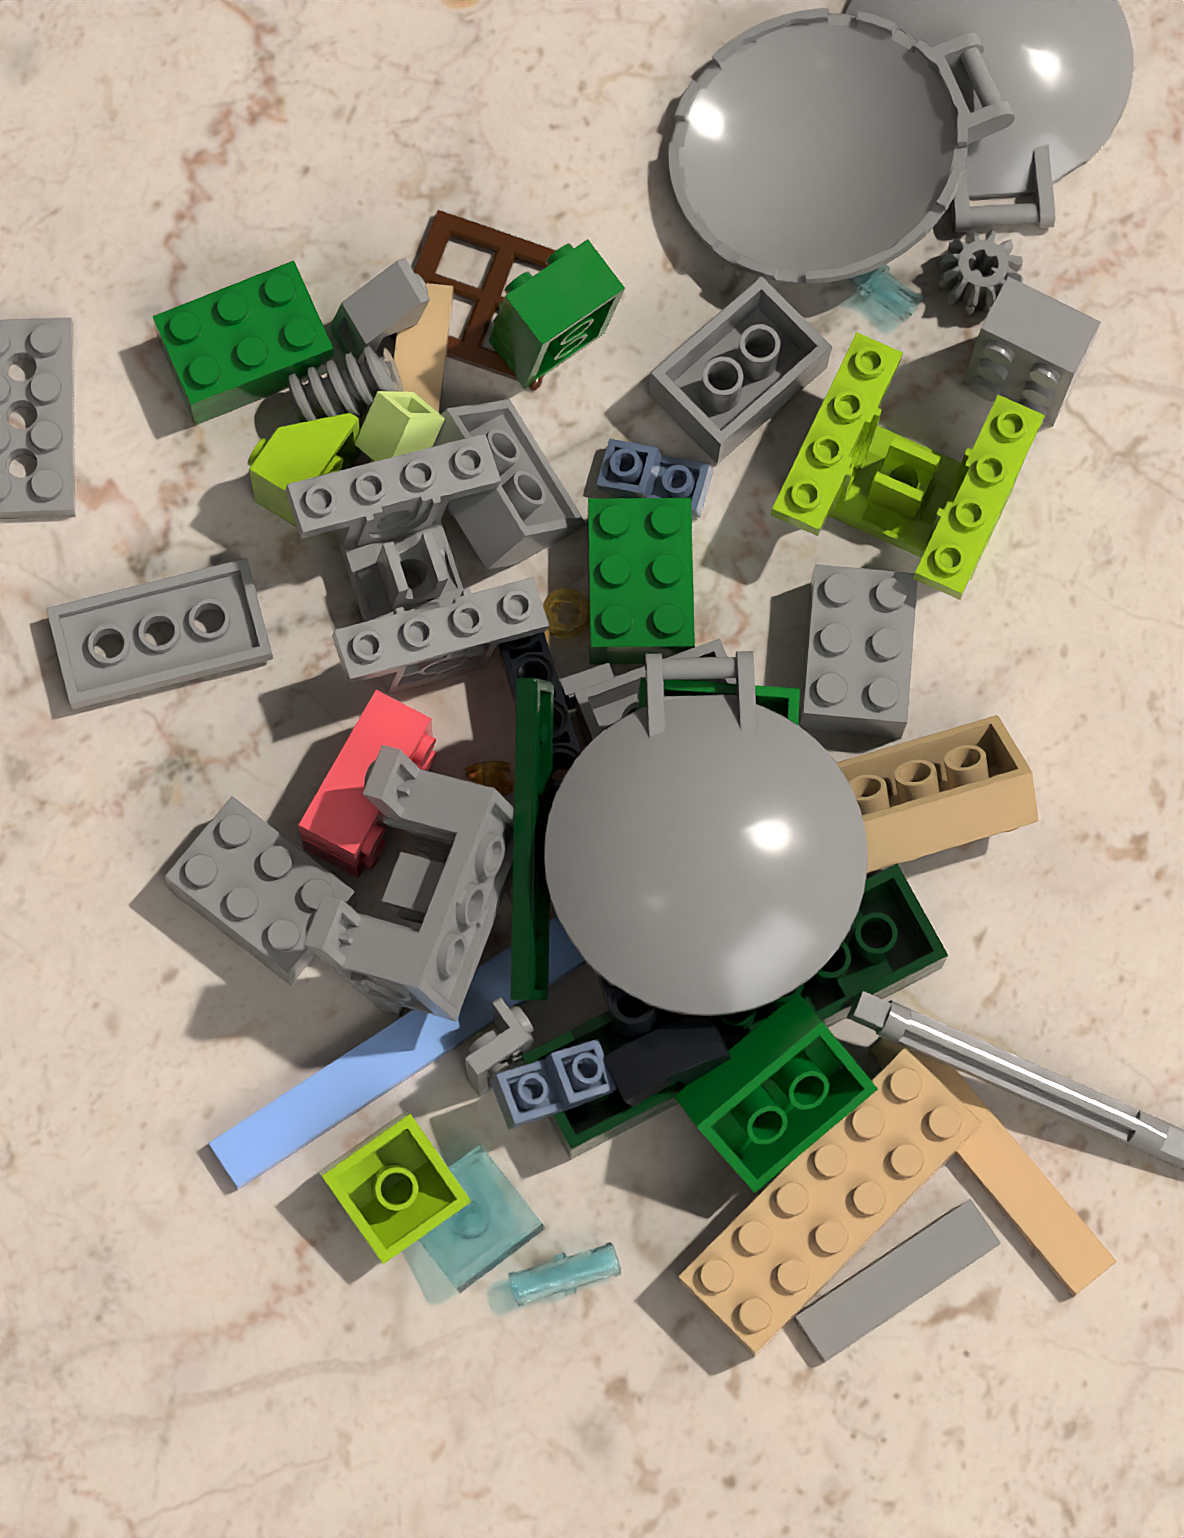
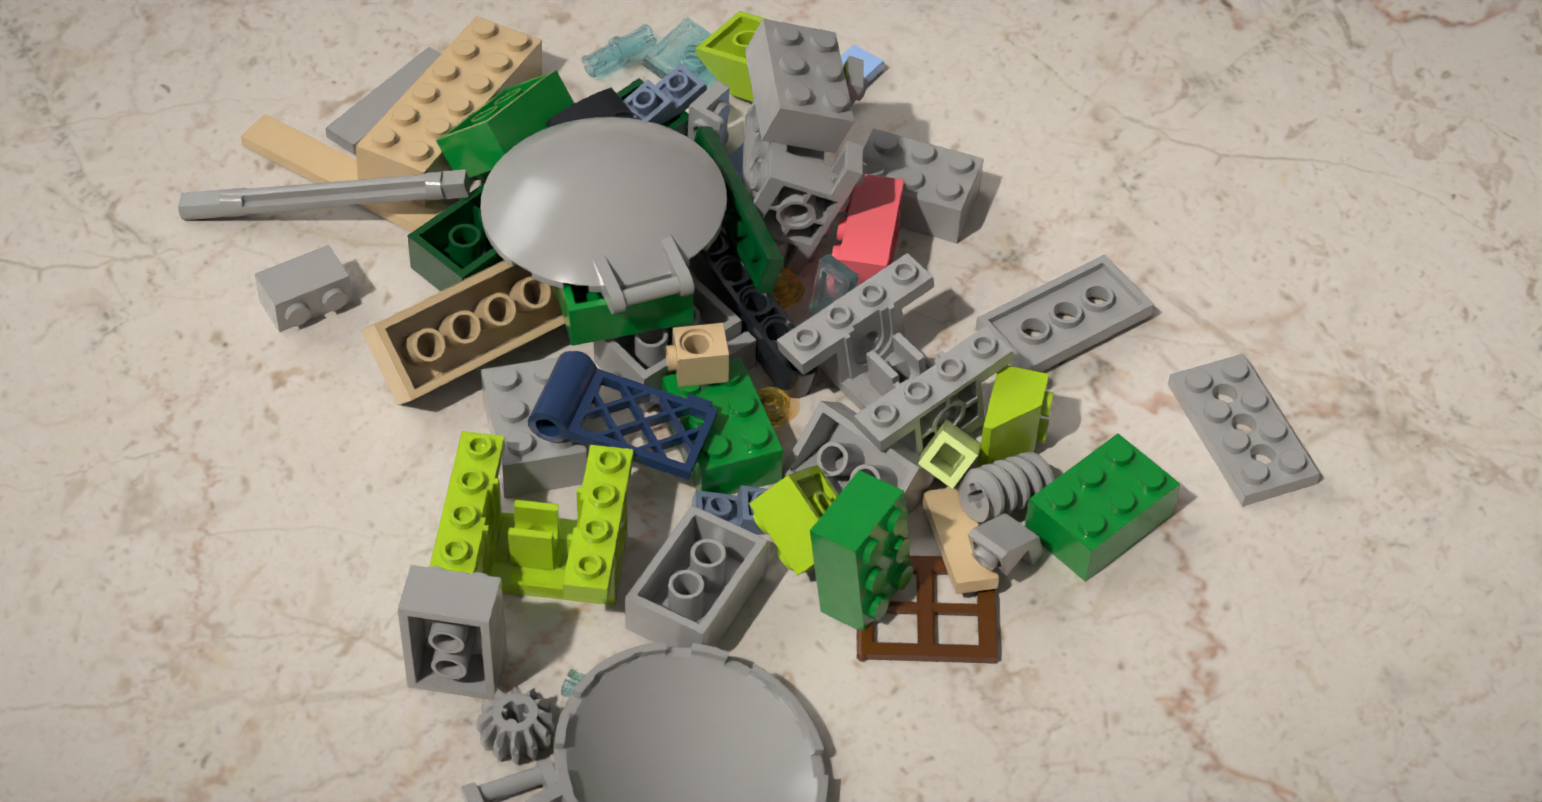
camera: 165 degrees right, 25 degrees down
(409, 910) = (799, 86): none -> light grey brick
(444, 714) = (831, 283): none -> clear light blue tile
(587, 412) = (789, 513): none -> lime slope
(640, 606) = (699, 355): none -> tan brick
(820, 612) = (574, 389): none -> dark blue piece
(1085, 954) = (304, 288): none -> light grey brick

